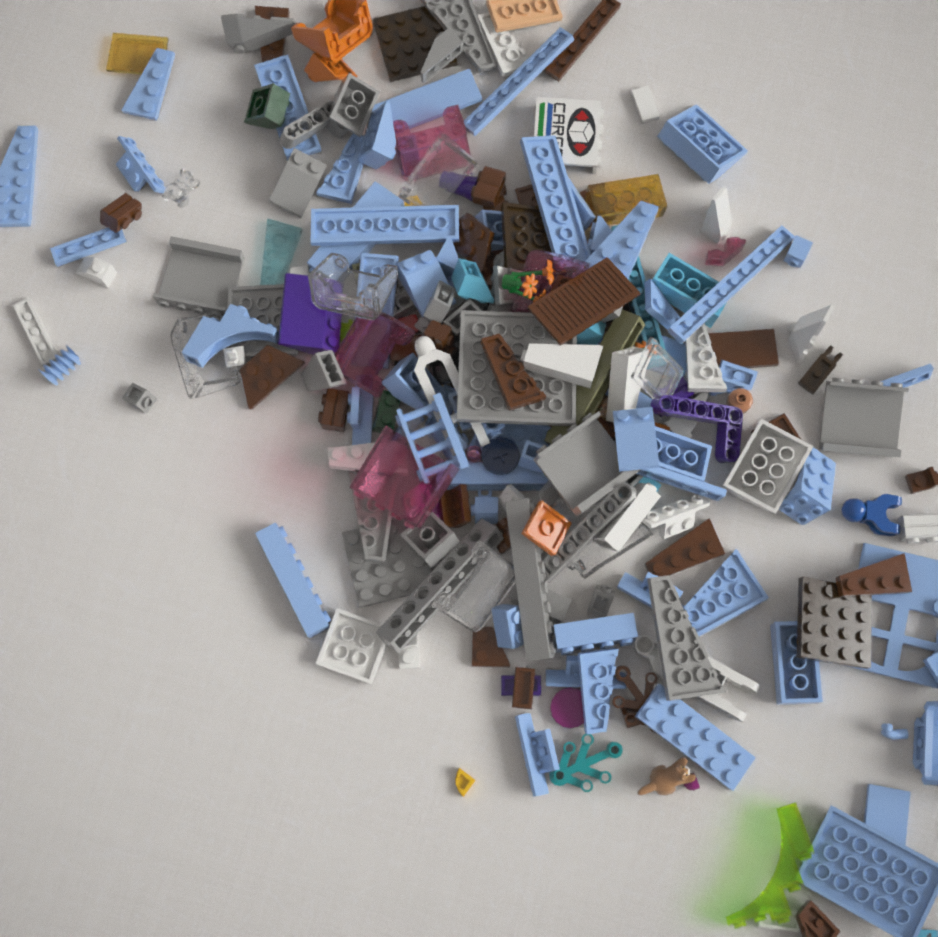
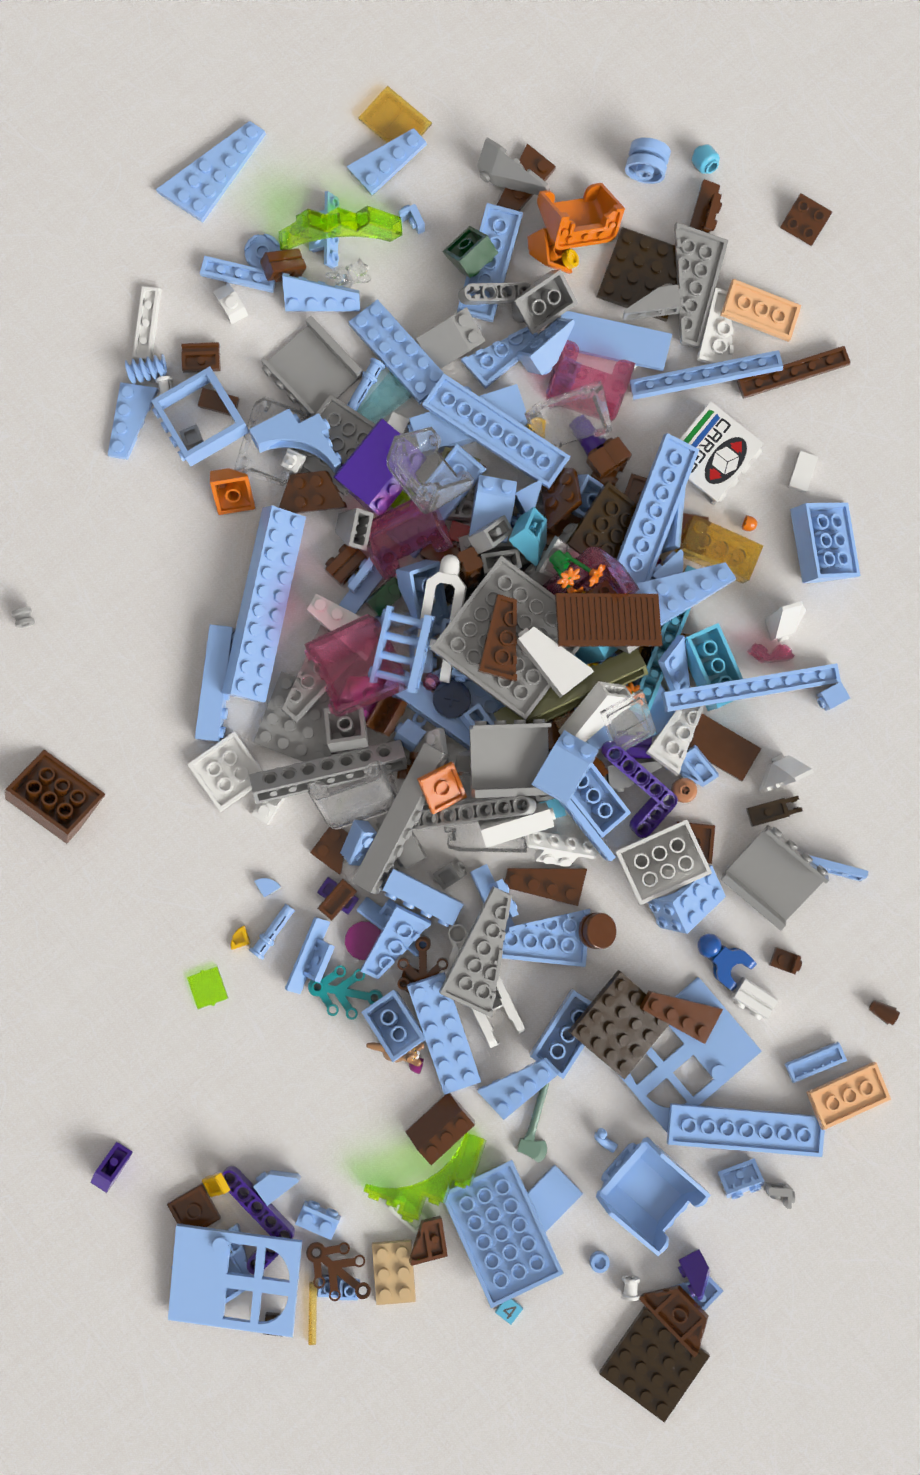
camera: 30 degrees right, 10 degrees up
(70, 411) = (129, 417): none -> light blue wing
(86, 370) = (164, 383): none -> white bush
(87, 637) = (23, 617): none -> light grey wheel
(90, 215) = (257, 246): none -> light blue tile
(100, 328) = (200, 356): none -> reddish brown plate
(139, 354) = (211, 401): none -> reddish brown tile
(146, 150) = (340, 223): none -> clear neon green arch
(158, 386) = (215, 442): none -> light blue window
(162, 221) = (318, 296): none -> light blue wing
(199, 415) = (231, 491): none -> orange slope
(203, 112) = (415, 219): none -> light blue bracket
(217, 772) = (54, 796): none -> reddish brown slope
(251, 255) = (368, 378): none -> light blue pin
(260, 219) = (397, 350): none -> light blue plate
(290, 487) = (263, 604): none -> light blue brick
(349, 65) = (570, 258): none -> yellow tile
(455, 720) = (267, 886): none -> light blue tile
(465, 845) = (207, 987): none -> clear neon green piece
(487, 764) = (267, 939): none -> light blue pin
(633, 168) = (749, 523): none -> orange hinge
(649, 759) = (393, 1025): none -> light blue slope
(751, 822) = (440, 1128): none -> reddish brown slope
(756, 561) = (597, 930): none -> reddish brown head
(788, 744) = (512, 1091): none -> light blue wing
(833, 783) = (528, 1145): none -> sand green piece

